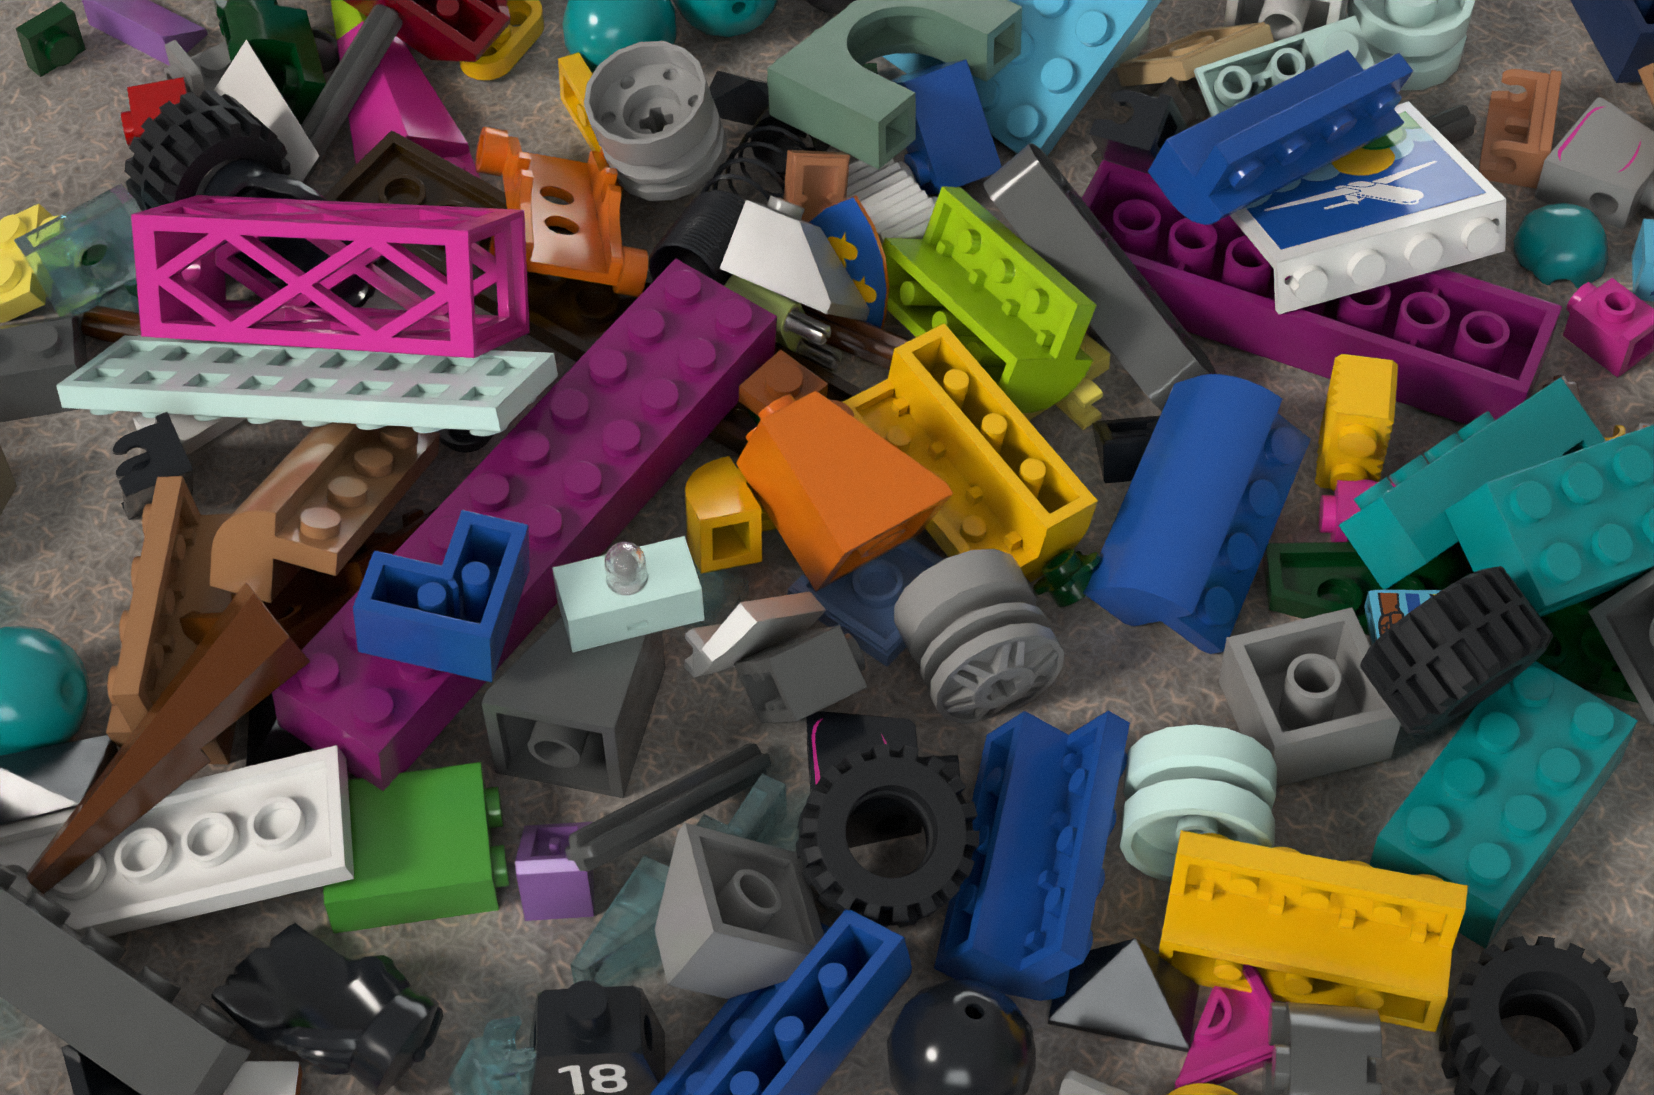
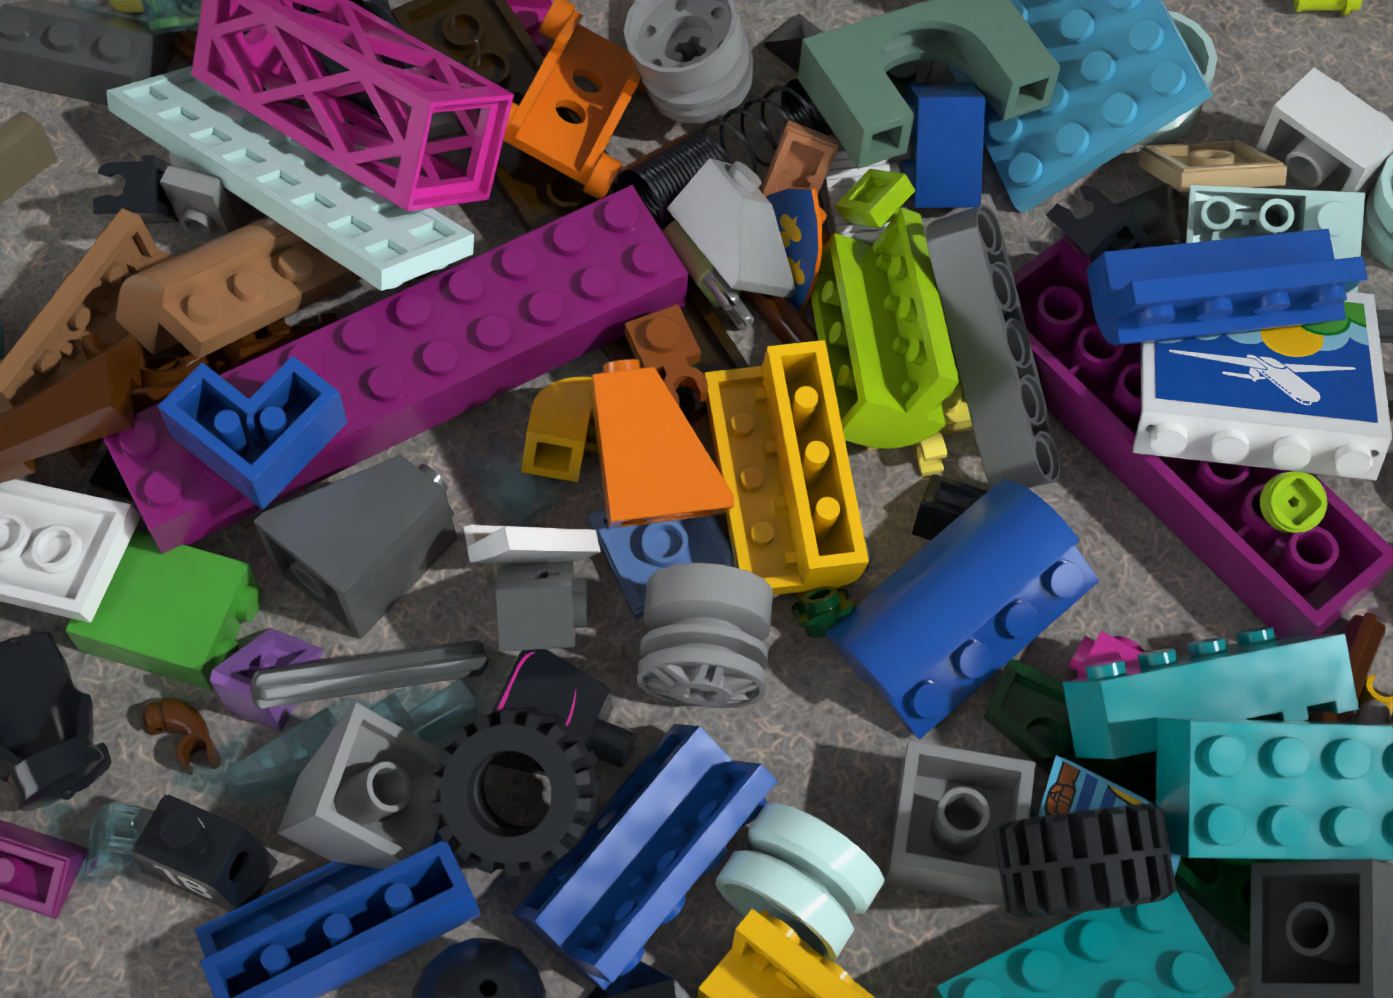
camera: 25 degrees right, 10 degrees up
(225, 455) = (199, 203): none -> light grey plate
(487, 945) = (181, 718): none -> reddish brown arm
(628, 593) = (412, 480): light aqua piece -> none
(908, 190) = (875, 198): none -> lime plate
(1356, 420) = (1148, 584): yellow brick -> none
(1447, 294) = (1293, 502): none -> lime tile

